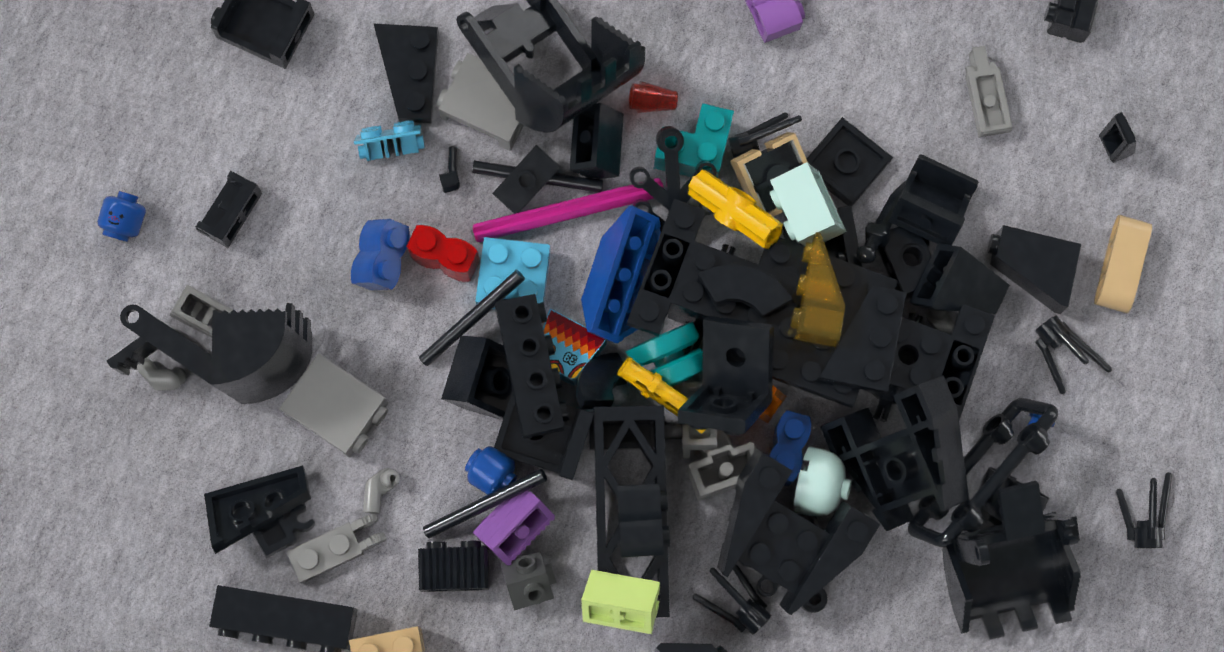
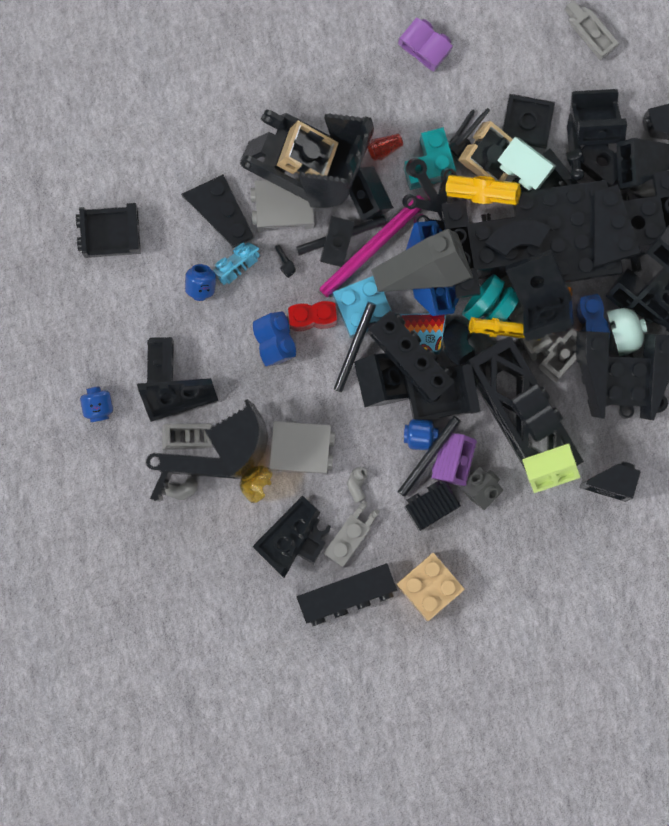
camera: 30 degrees left, 5 degrees up
(218, 259) = (174, 397): none -> black wing
(252, 412) = (254, 481): none -> clear yellow hair
(331, 138) = (200, 282): none -> blue head
(549, 49) = (307, 151): none -> piece
(612, 262) = (428, 264): none -> dark grey wedge
(751, 613) = (625, 431): black plant -> none
(822, 304) = (570, 219): clear yellow slope -> none

